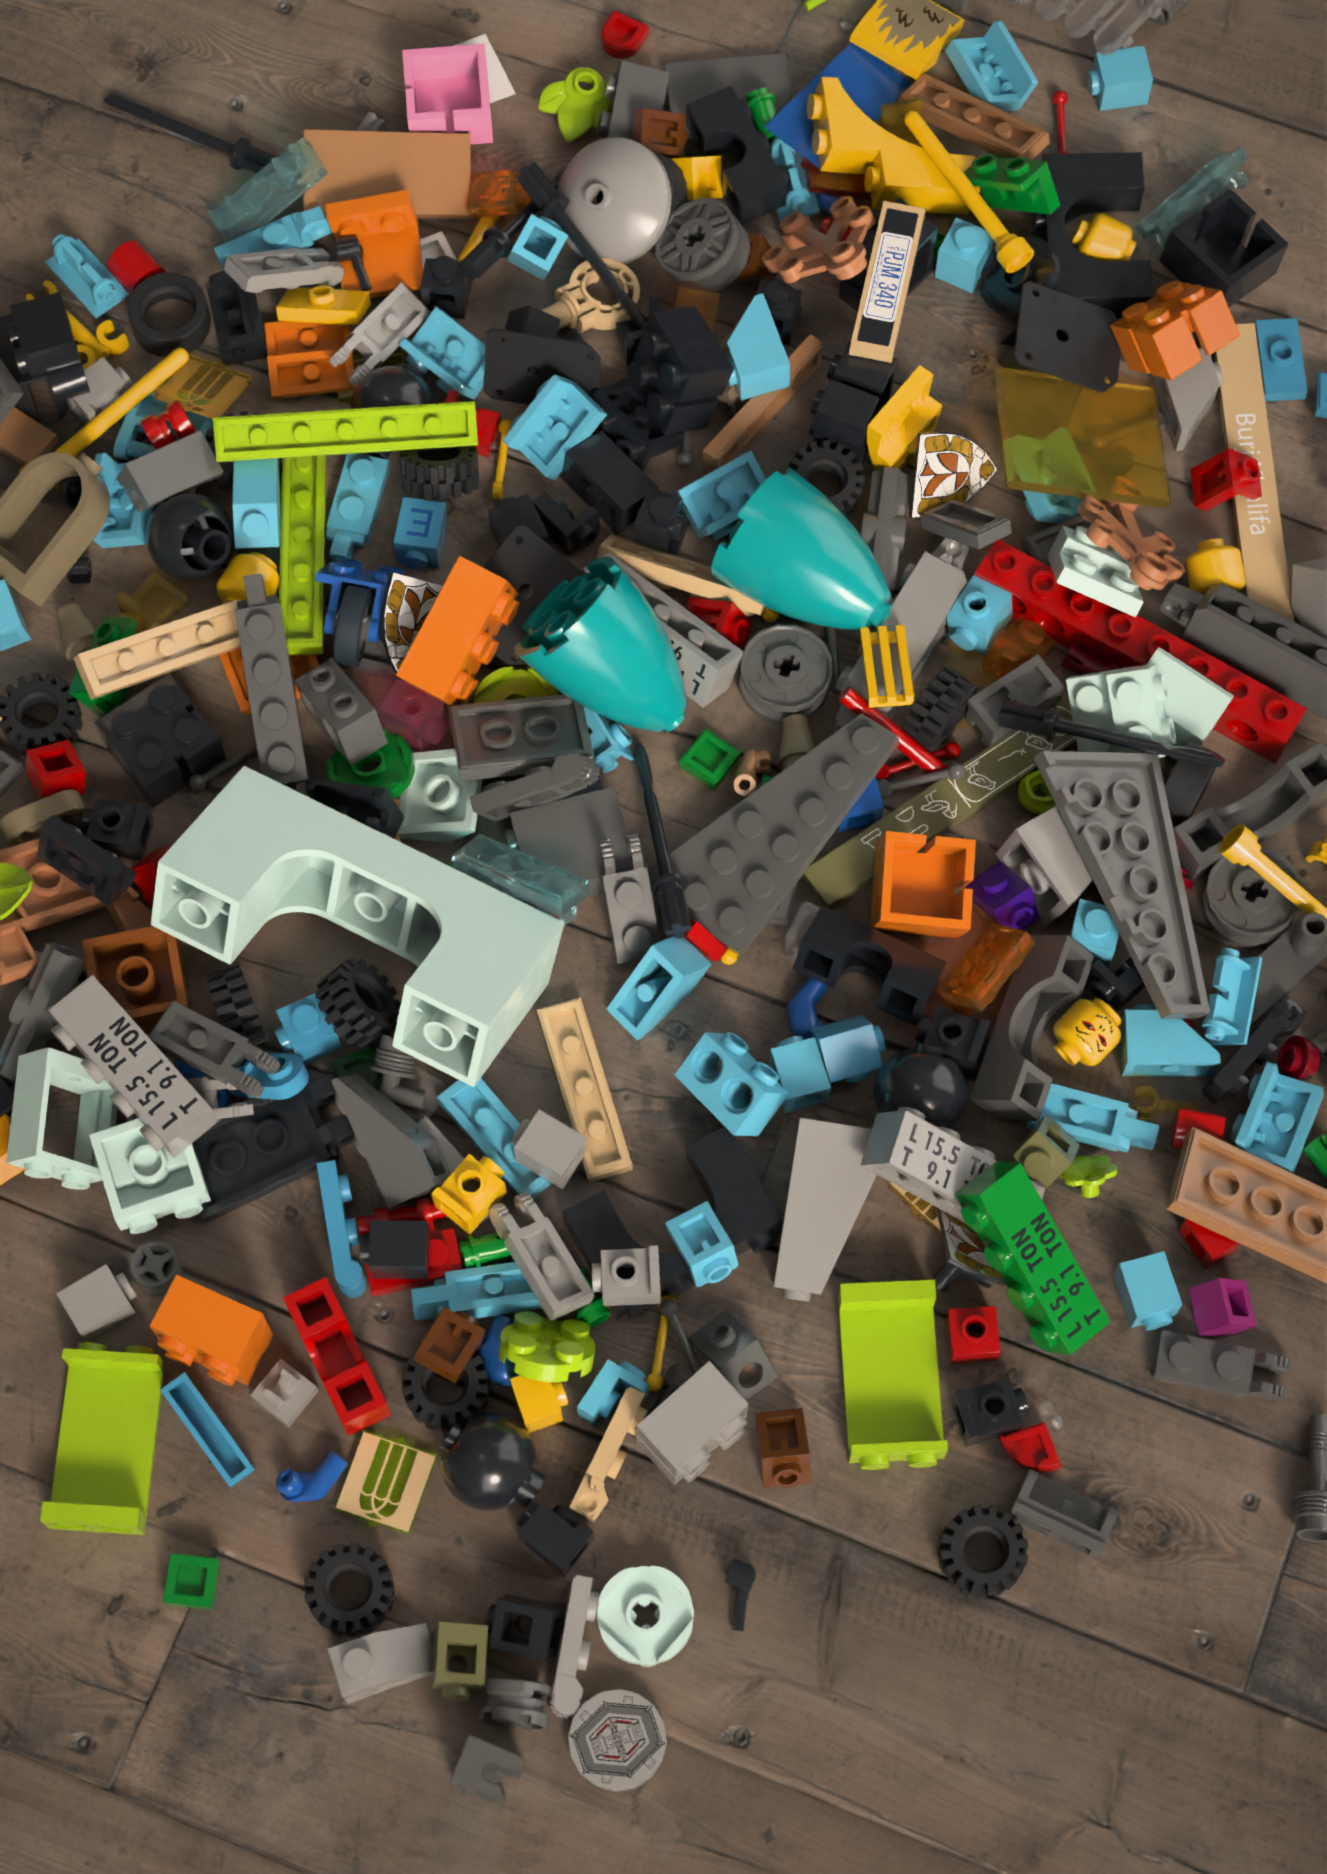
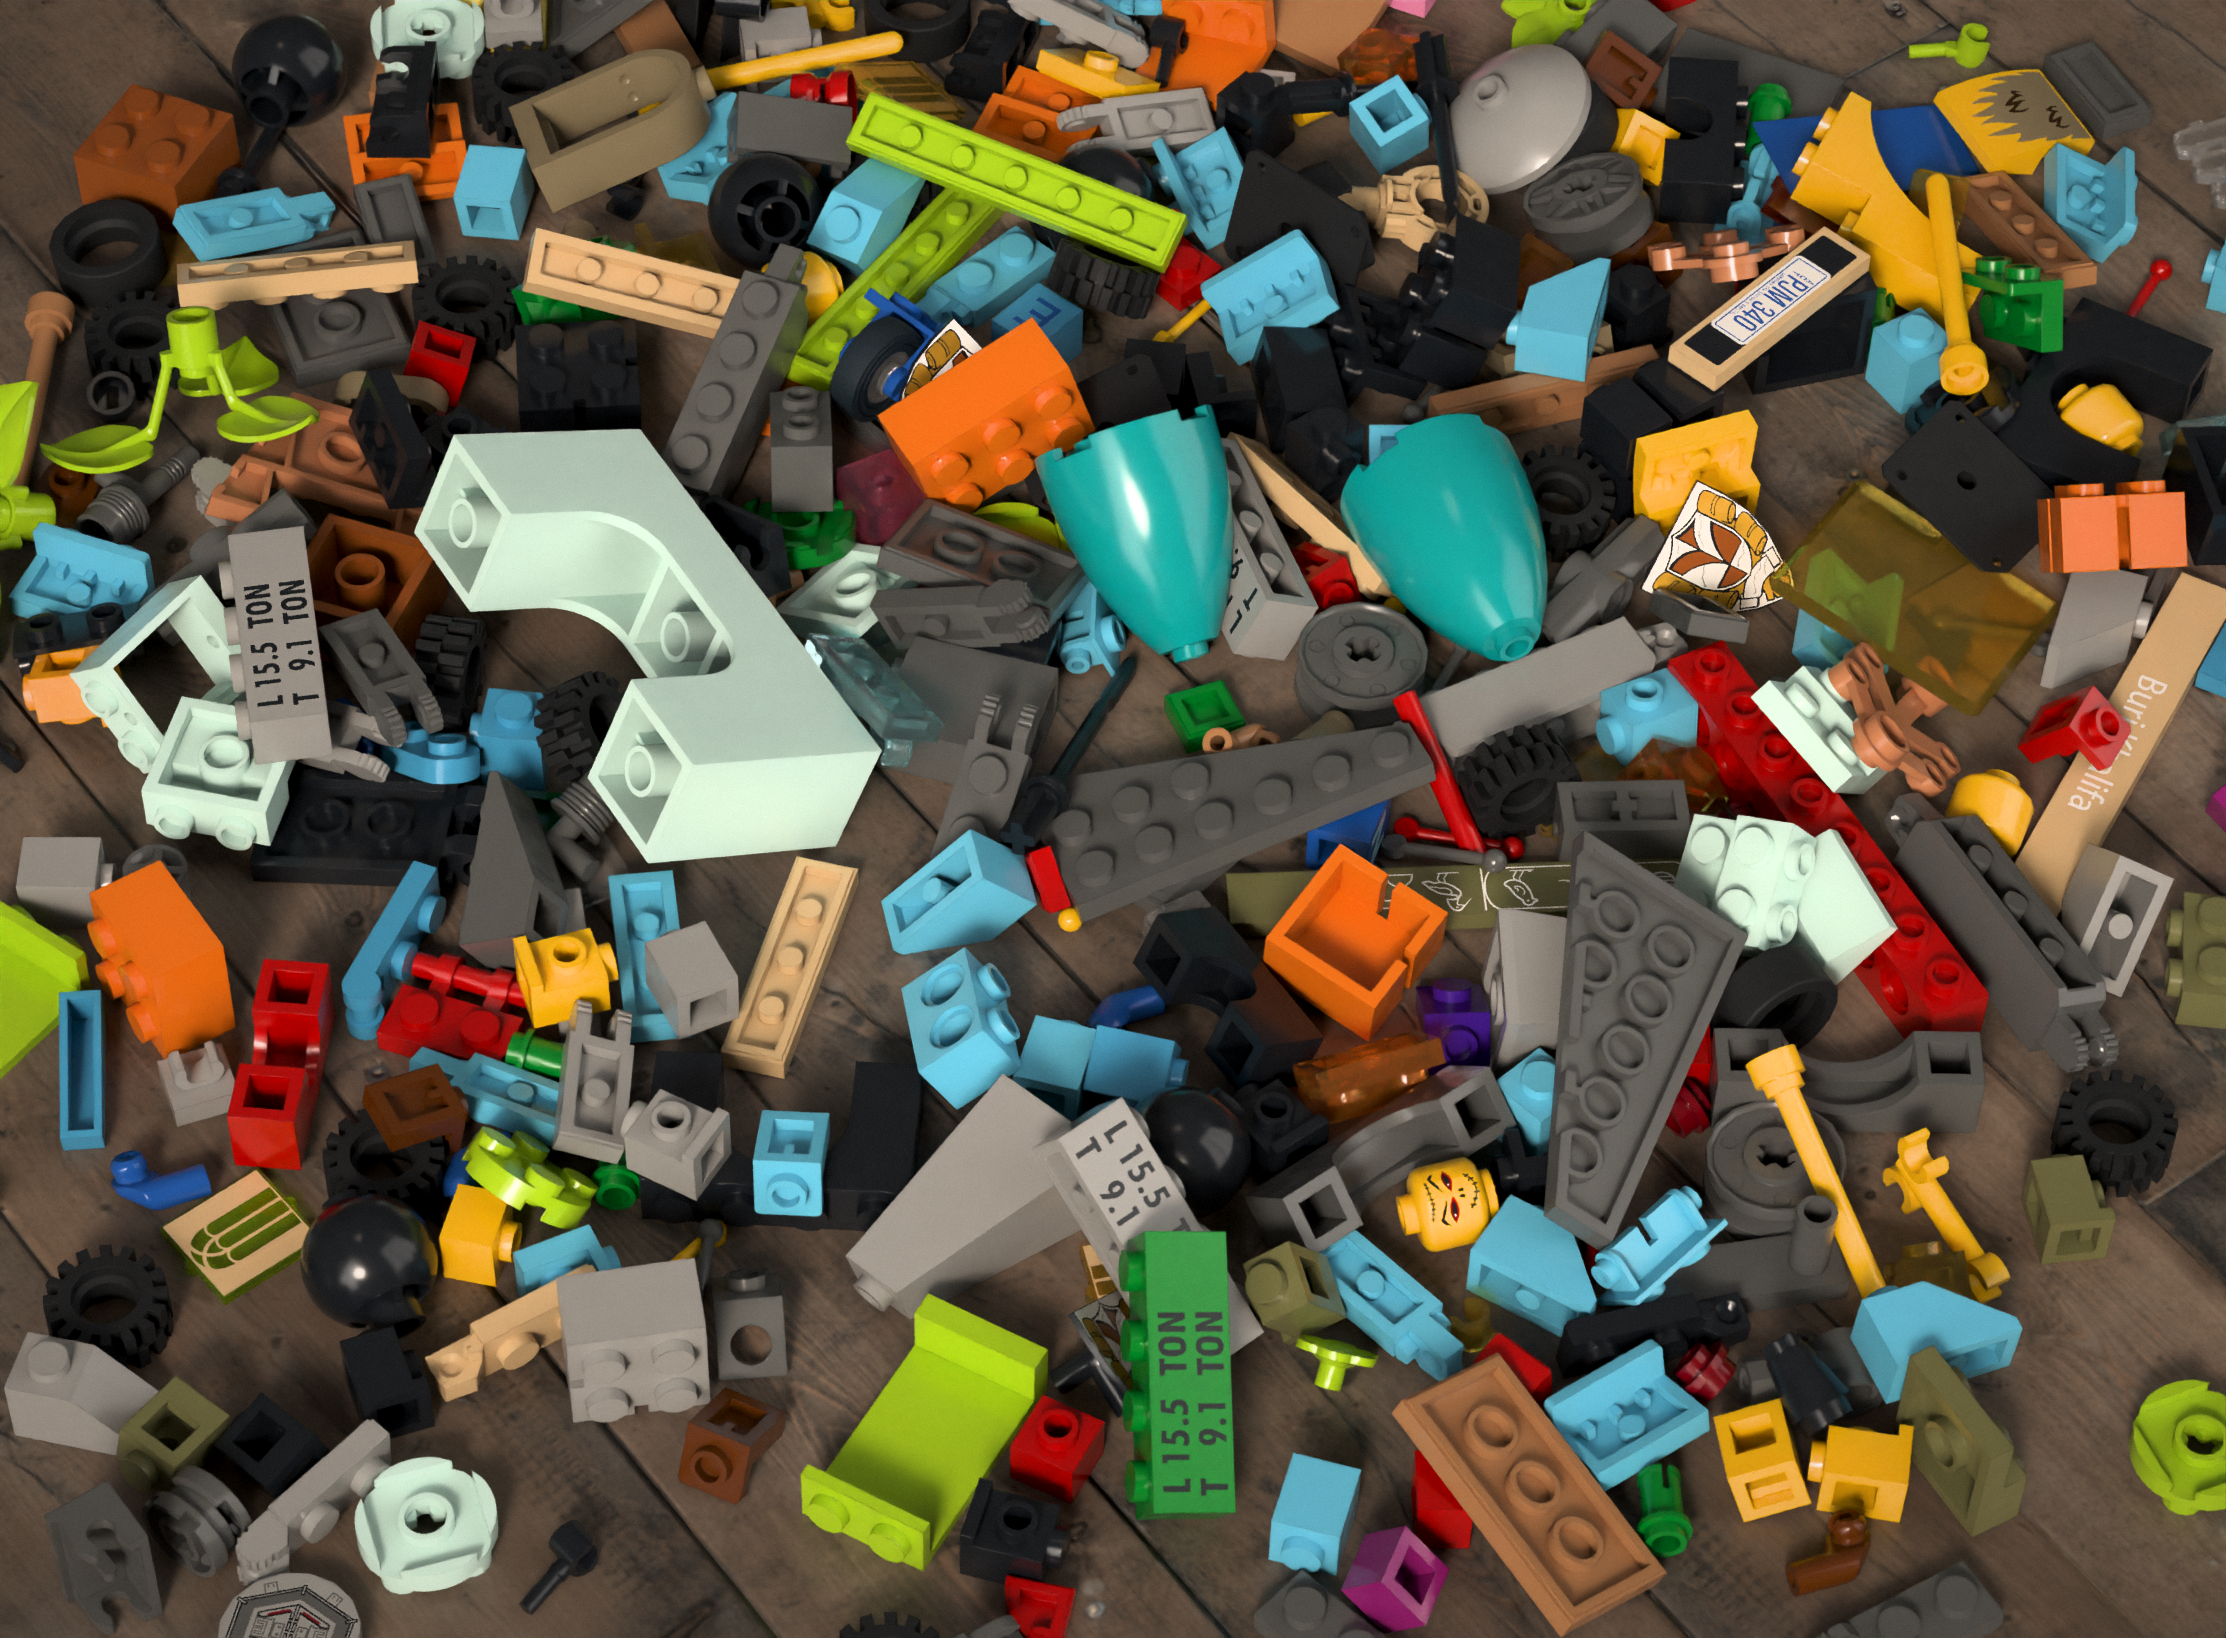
camera: 30 degrees right, 20 degrees down
(396, 1249) = (435, 988): black brick -> none
(885, 638) = (1477, 664): yellow tile -> none
(1047, 723) = (1641, 845): black piece -> none

